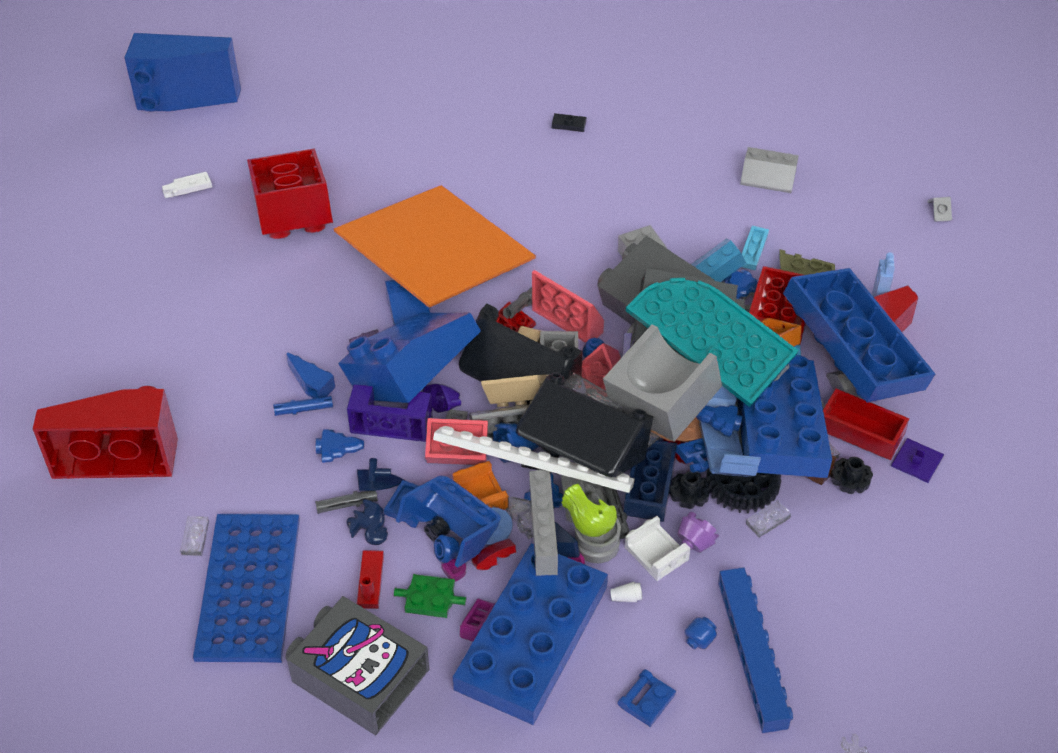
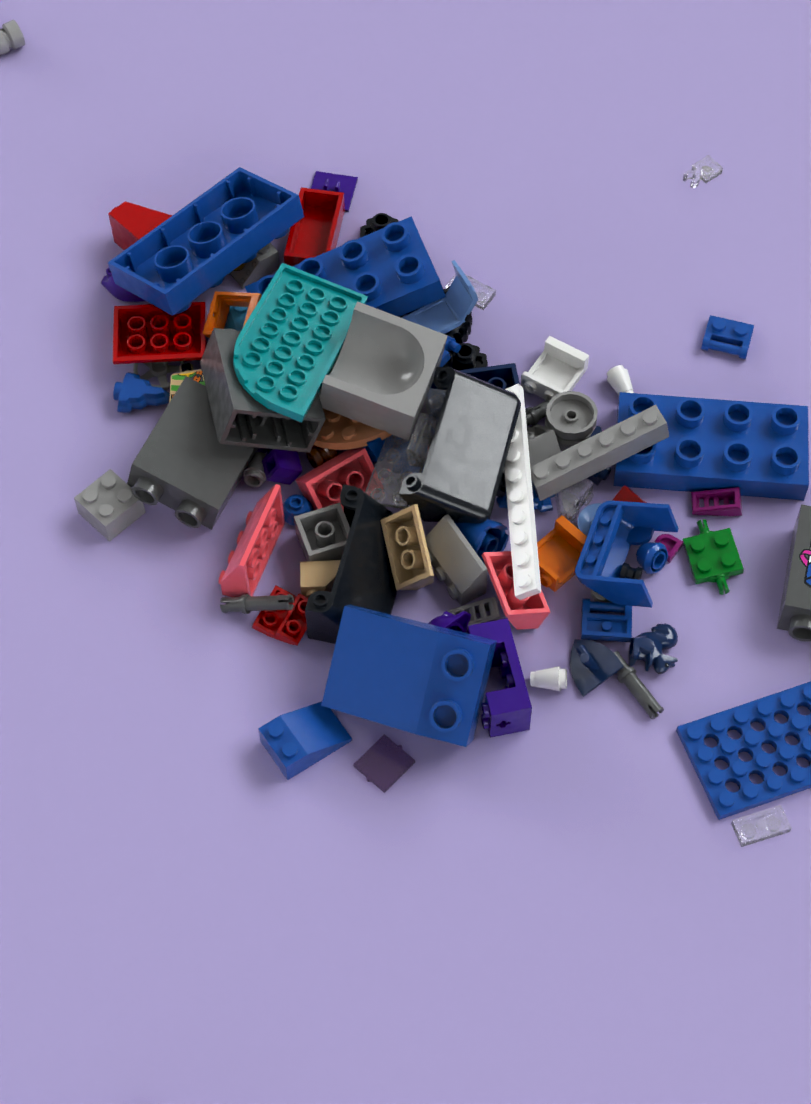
camera: 110 degrees left, 10 degrees up
(109, 436) = (699, 962): red slope -> none
(290, 193) = (146, 974): red slope -> none
(302, 405) = (524, 801): blue pin -> none
(312, 379) = (476, 799): blue slope -> none
(336, 445) = (562, 730): blue rock -> none
(370, 579) = (721, 620): red piece -> none
(379, 450) = (550, 678): none -> white cone
(434, 245) = (192, 738): orange baseplate -> none
(588, 517) = (575, 412): lime piece -> none
(697, 533) = (526, 337): medium lavender cone -> none
(700, 633) = (638, 309): blue head -> none
(720, 261) = (118, 416): dark azure slope -> none
(754, 246) = (63, 394): medium azure plate -> none
(754, 651) = (631, 266): blue brick -> none
(803, 266) = (83, 338): olive wing -> none
(884, 275) = (107, 222): light blue hinge -> none

